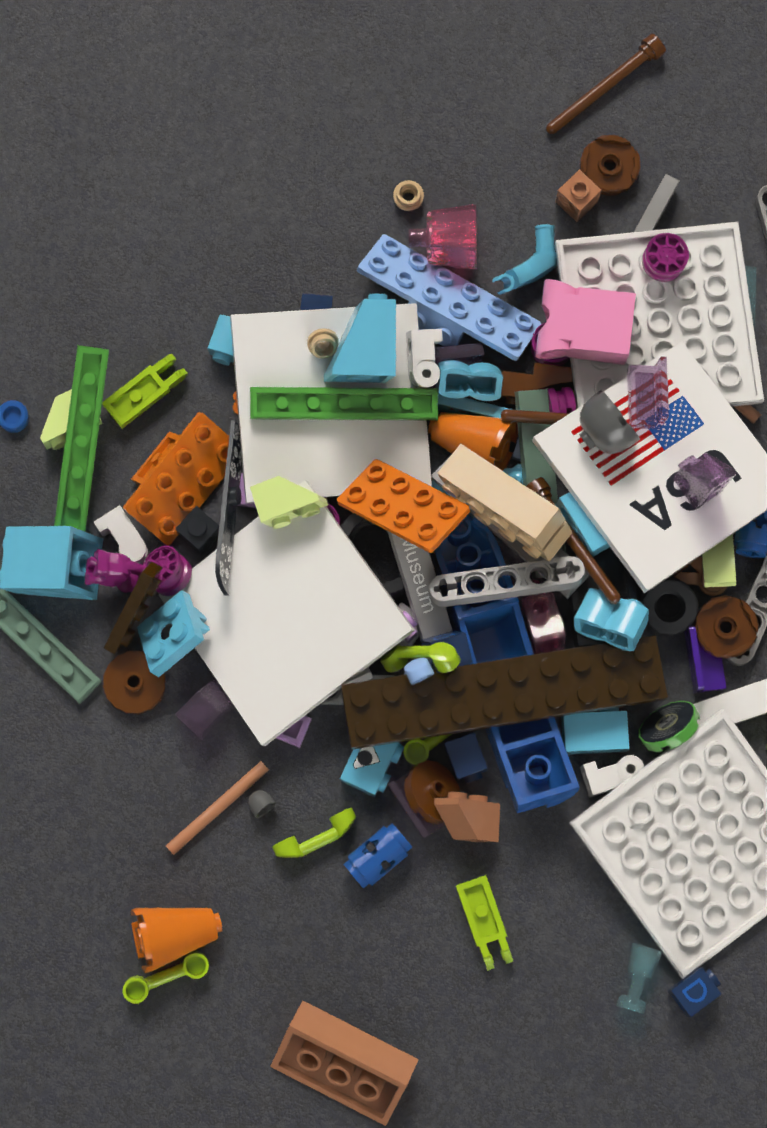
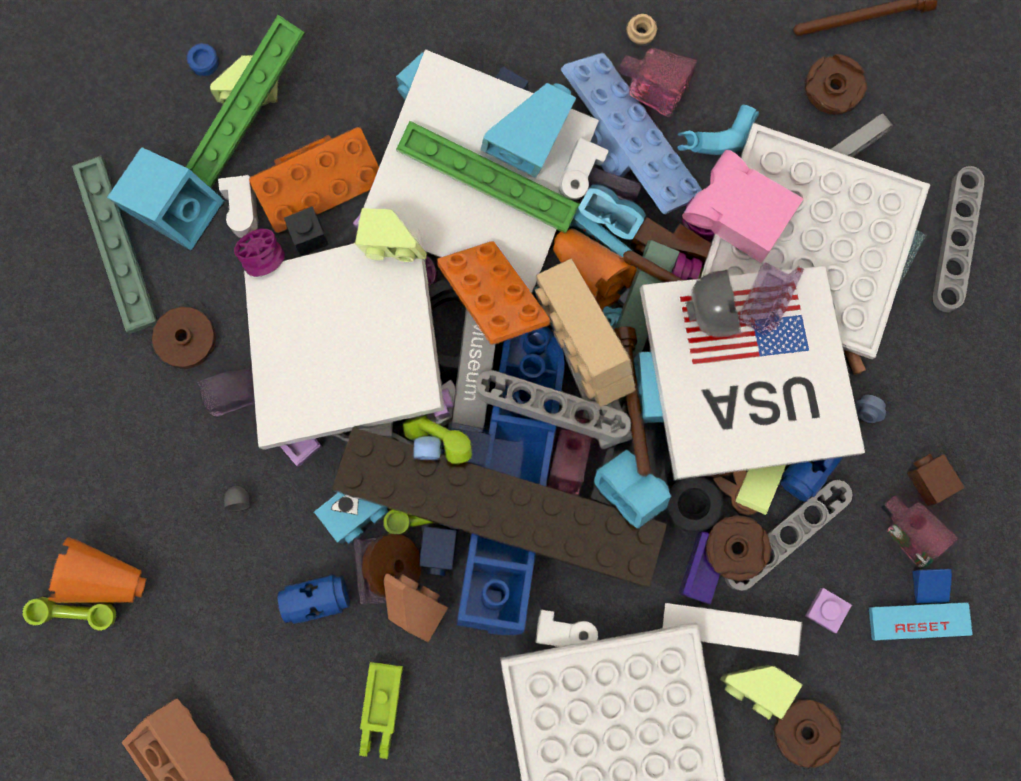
camera: 30 degrees right, 0 degrees up
(113, 570) = (213, 230): magenta animal -> none
(134, 608) = (211, 269): dark brown plate -> none
(142, 391) = (324, 89): lime hinge -> none
(184, 634) = (248, 306): medium azure piece -> none
(217, 807) = (197, 484): nougat piece -> none
(230, 500) = (333, 230): black piece -> none
(291, 849) = (242, 553): lime bar -> none
(318, 347) = (490, 118): tan plate -> none
(578, 195) = (793, 96): nougat brick -> none
(596, 732) = (569, 585): medium azure brick -> none
(665, 257) = (847, 182): magenta wheel -> none
(669, 726) = (639, 614): tile -> none
(703, 478) = (783, 398): clear purple slope -> none

